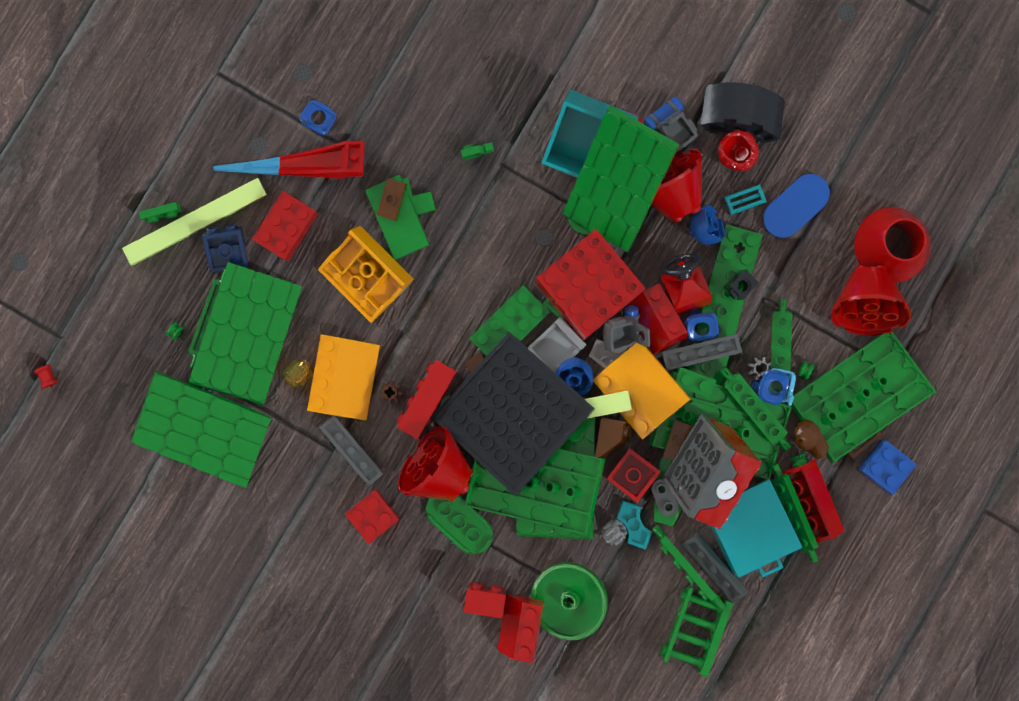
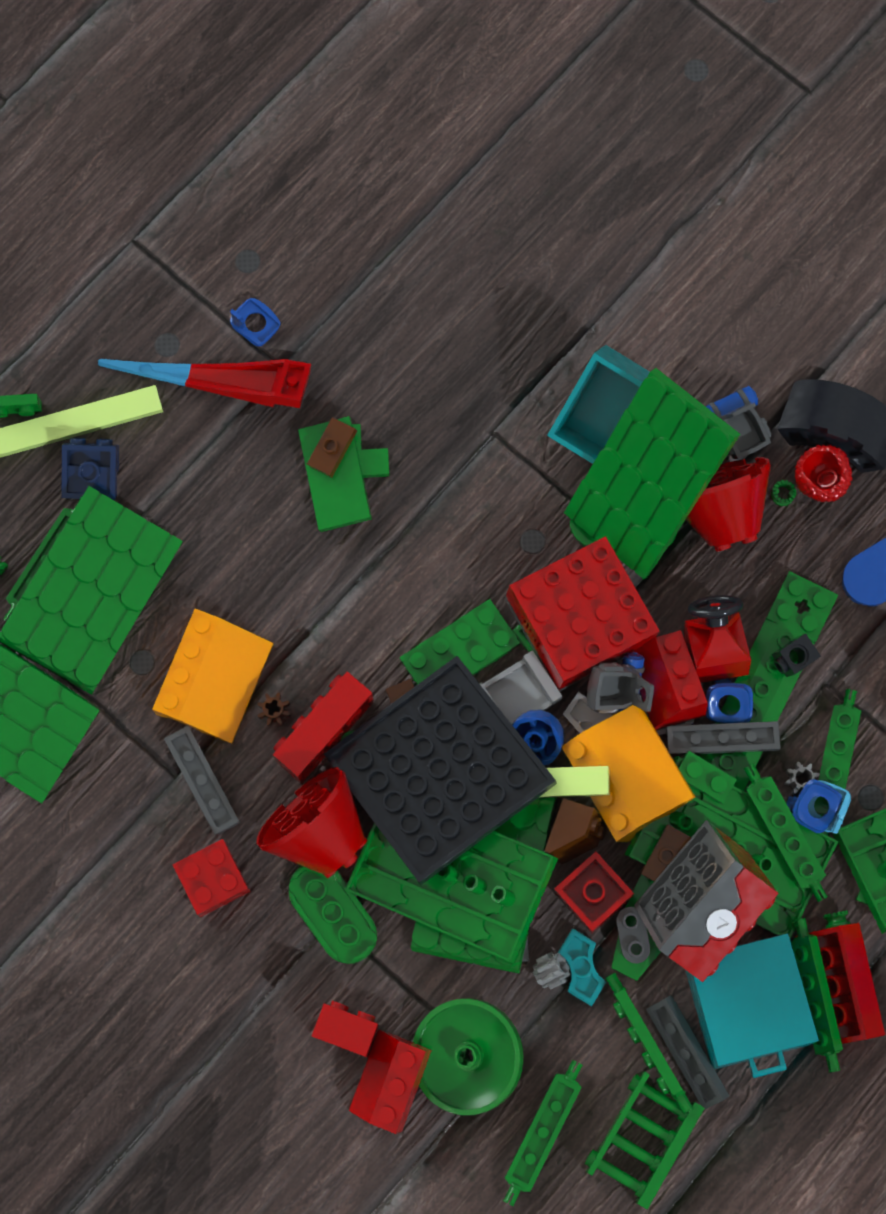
camera: 15 degrees right, 10 degrees down
(285, 226) = (178, 455): red brick -> none
(297, 373) = (150, 658): clear yellow head -> none
(365, 274) = (274, 541): light orange piece -> none
(472, 151) = (456, 406): green plate -> none
(628, 639) = (542, 1132): none -> green plate
(706, 168) = (791, 495): none -> green bush
(706, 227) = (760, 567): blue cylinder -> none
(730, 205) = (824, 553): teal tile -> none
(805, 369) = (867, 794): green bush -> none
(809, 438) = (857, 892): reddish brown cap -> none

